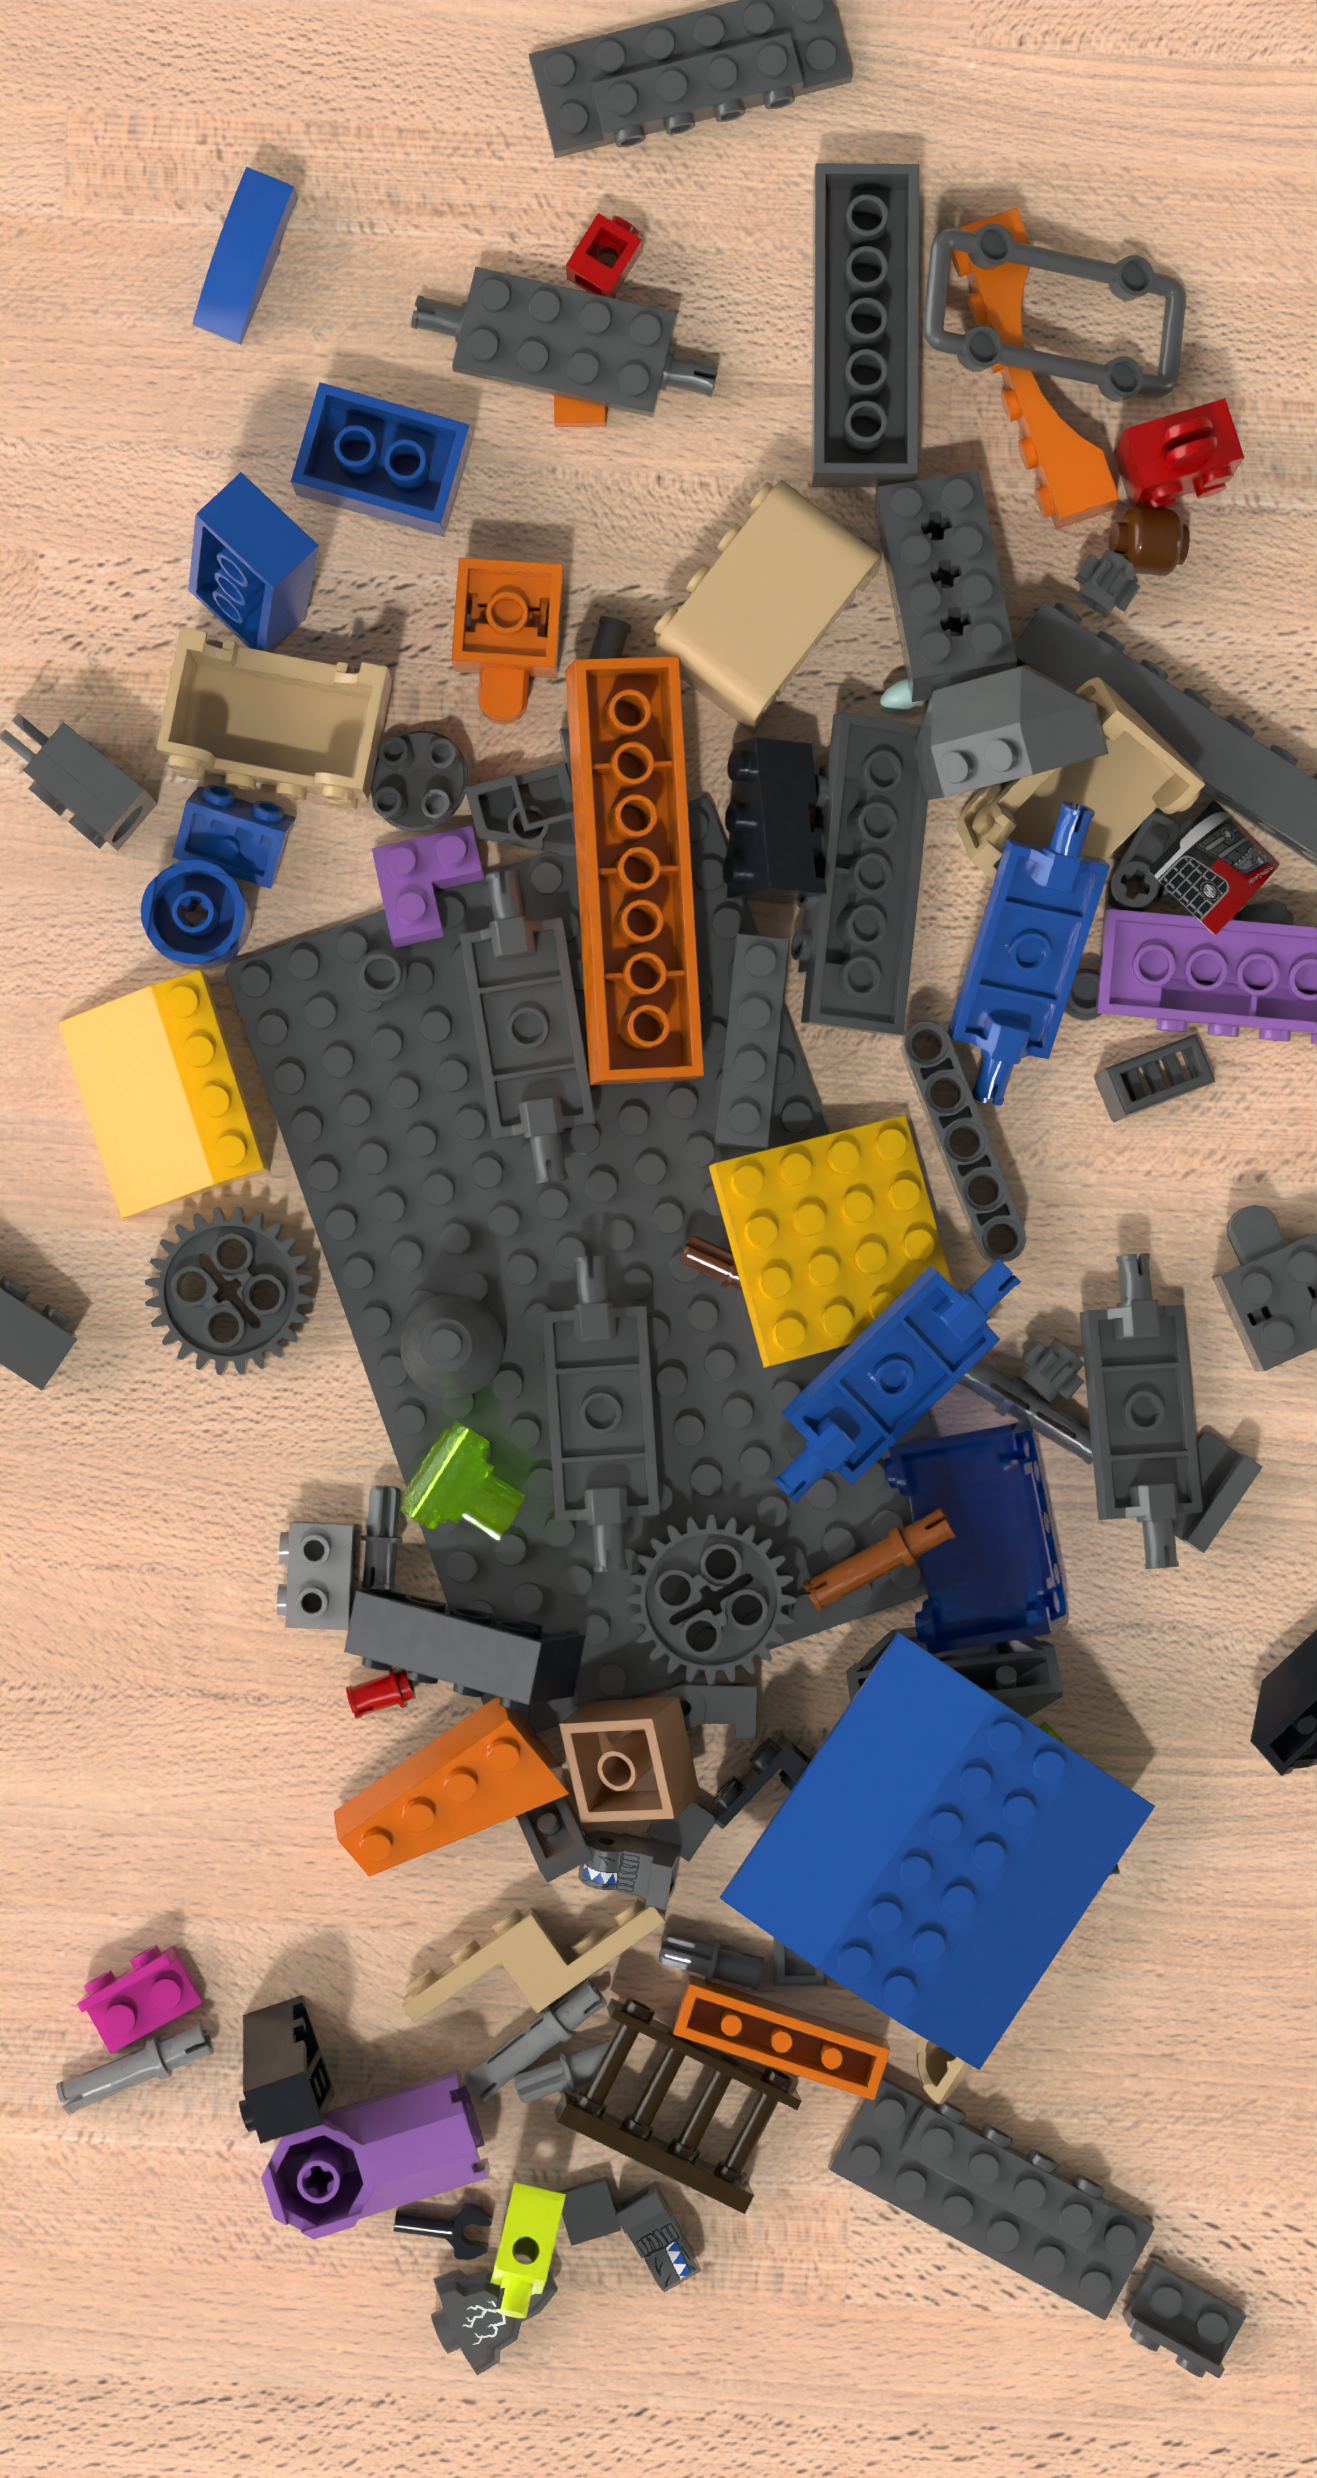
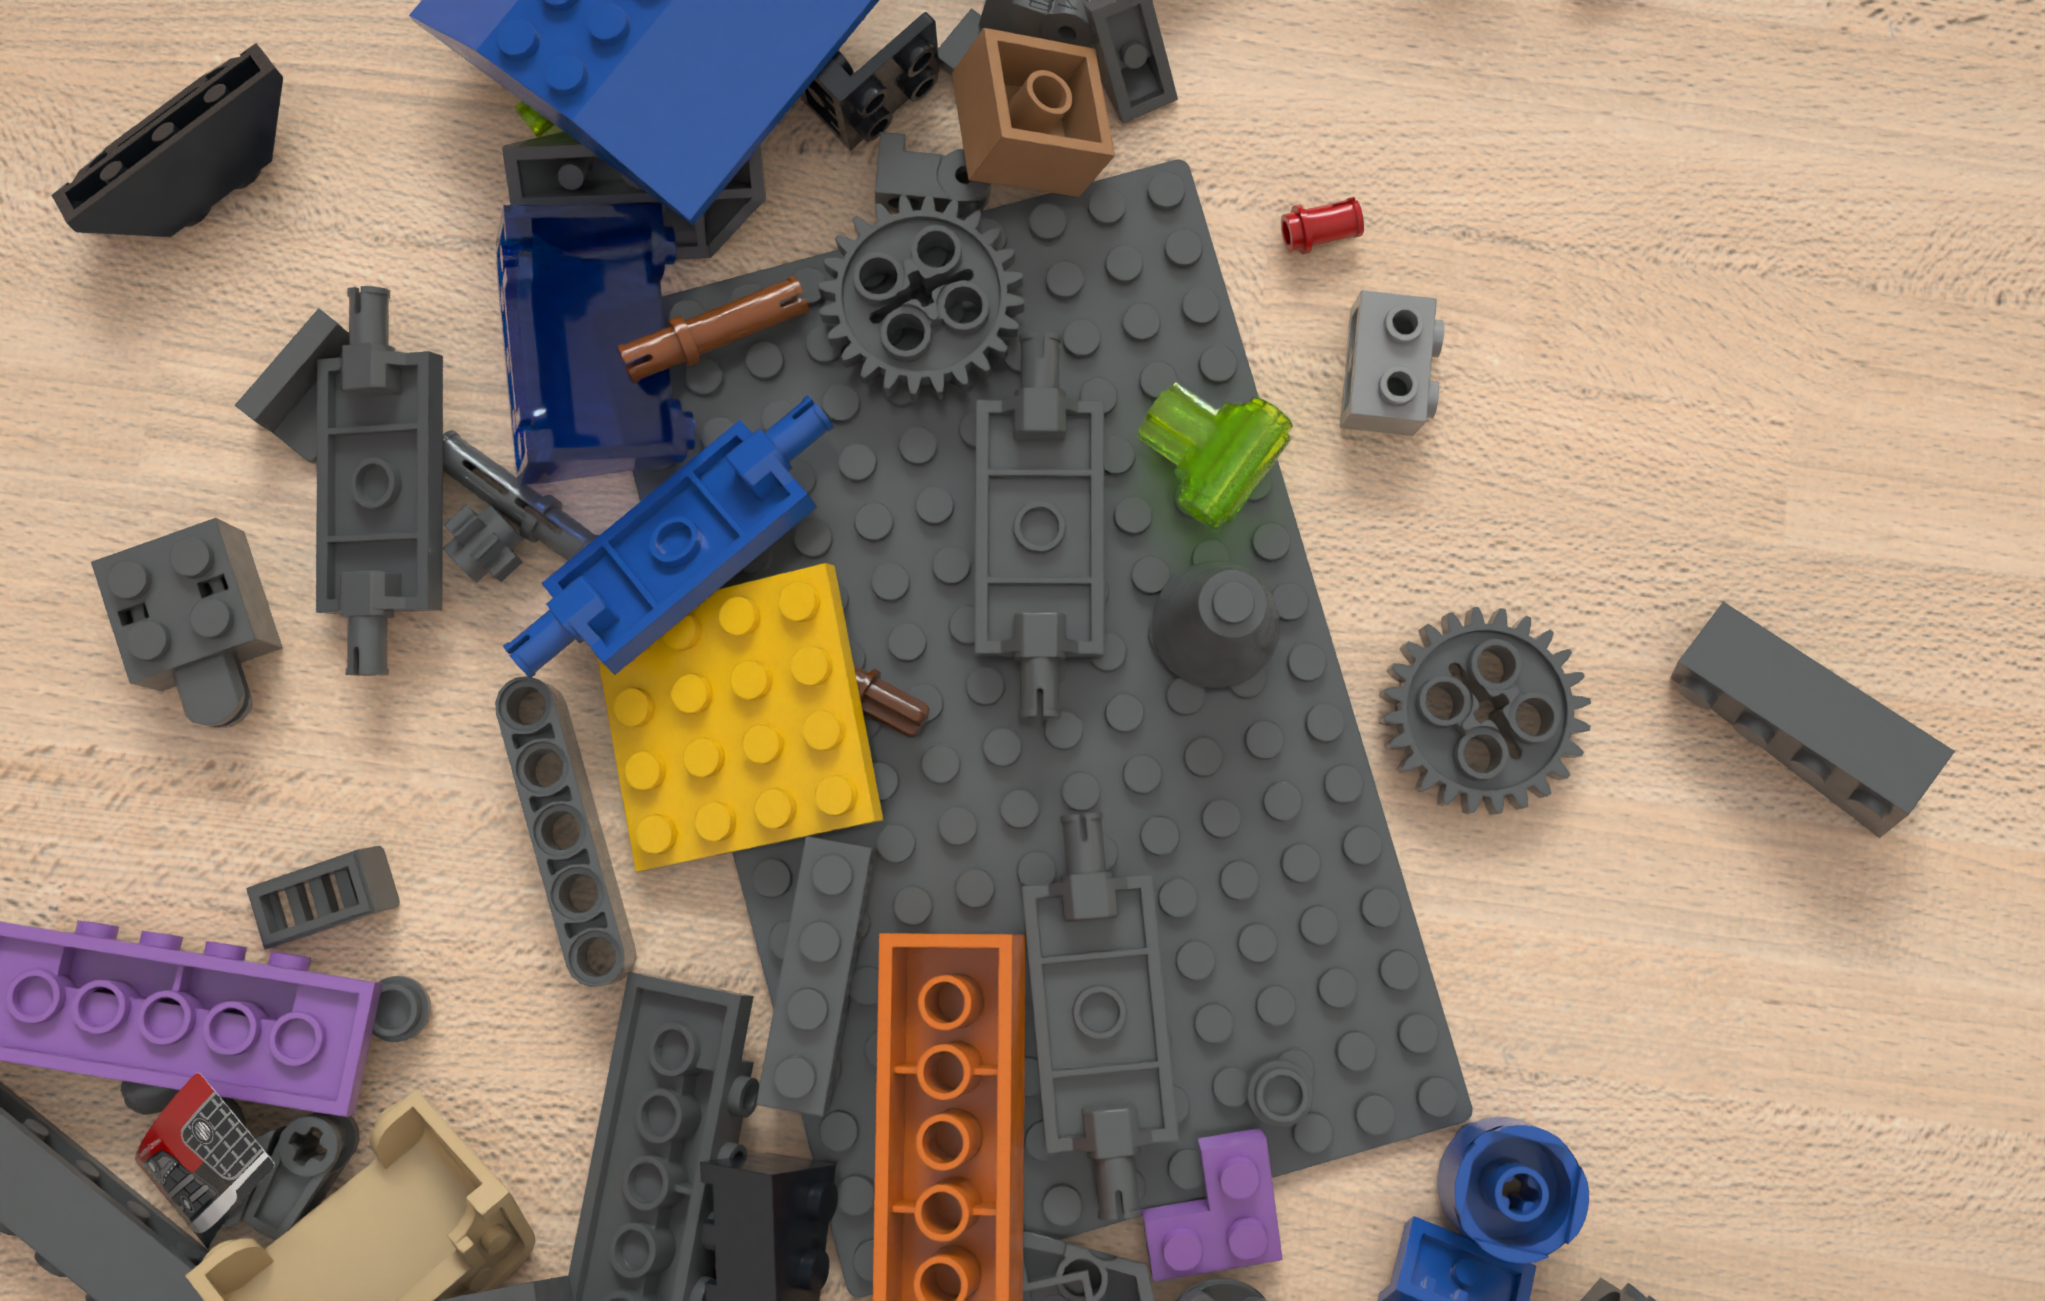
camera: 175 degrees right, 5 degrees down
(164, 1094) = (1554, 964): yellow slope -> none
(381, 1538) = (1312, 402): dark grey axle -> none
(451, 1789) = (1246, 100): orange wedge -> none
(463, 1649) = (1223, 256): wedge -> none
(1028, 950) = (449, 1074): blue plate -> none

